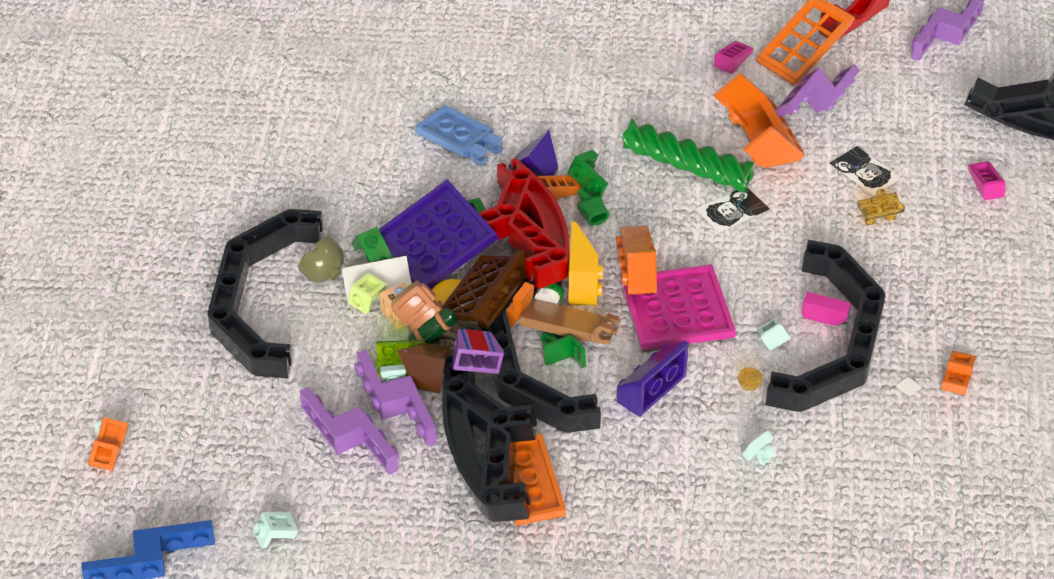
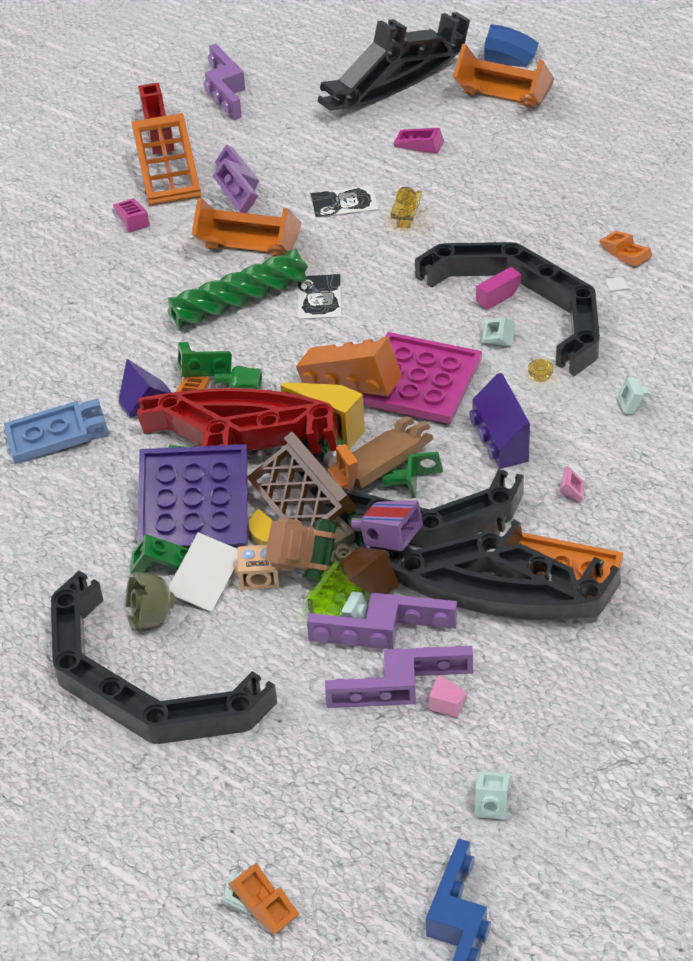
camera: 55 degrees left, 0 degrees up
(349, 465) = (446, 697): none -> bright pink slope
(365, 292) = (220, 584): yellowish green bracket -> none
(625, 451) = (572, 485): none -> bright pink slope

